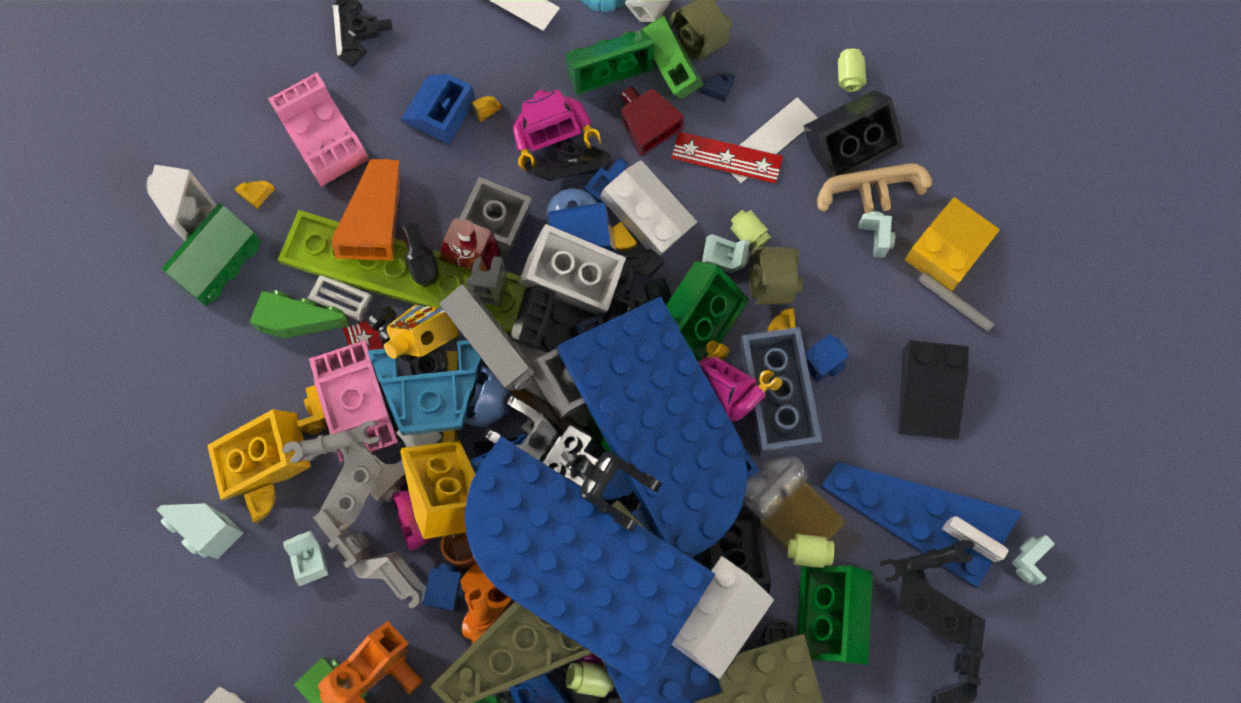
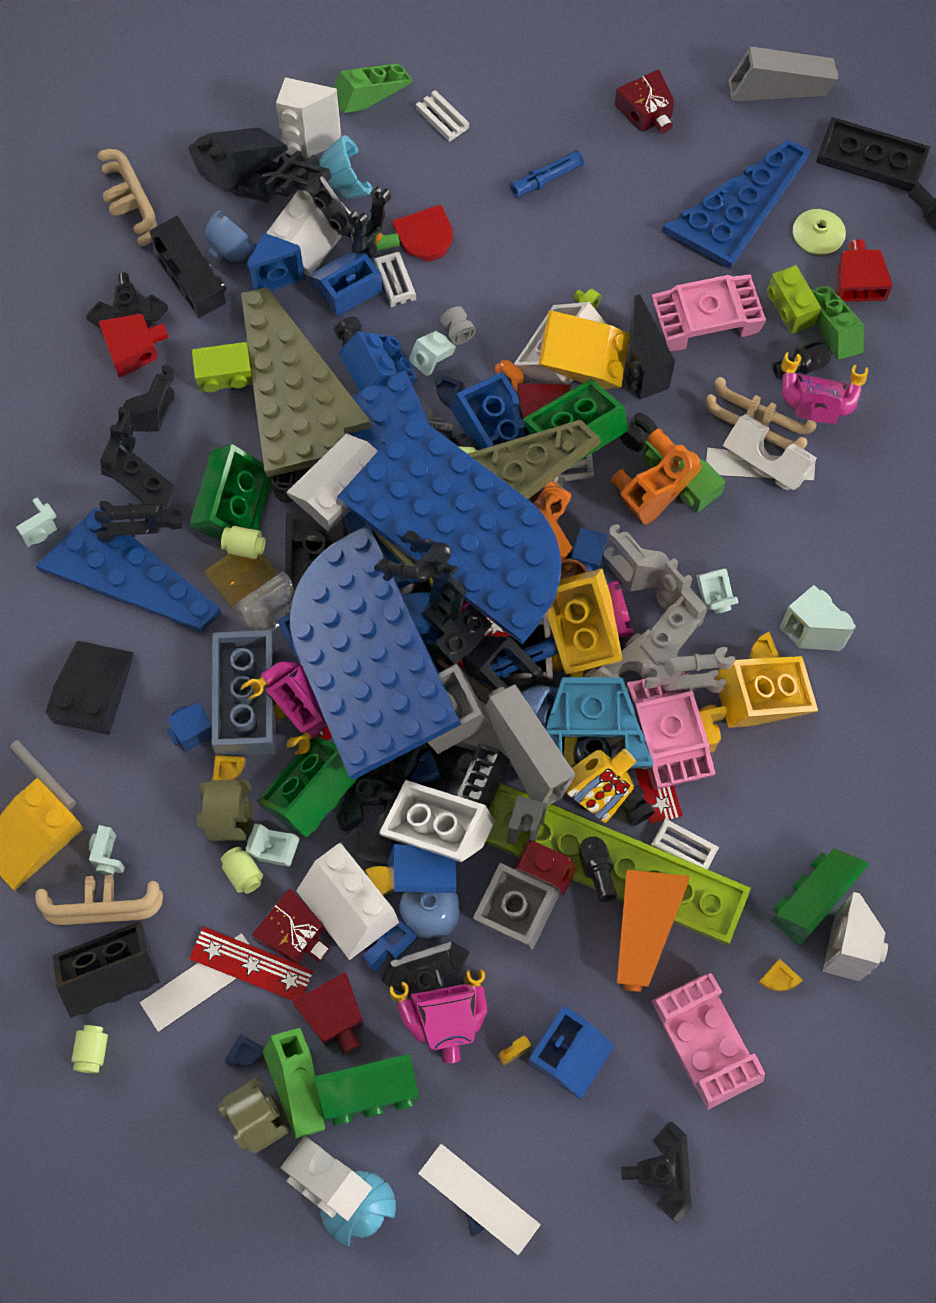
camera: 175 degrees left, 5 degrees down
(289, 318) = (736, 825): bright green slope -> none
(695, 182) = (292, 930): none -> dark red torso
(983, 544) = (88, 536): white tile -> none

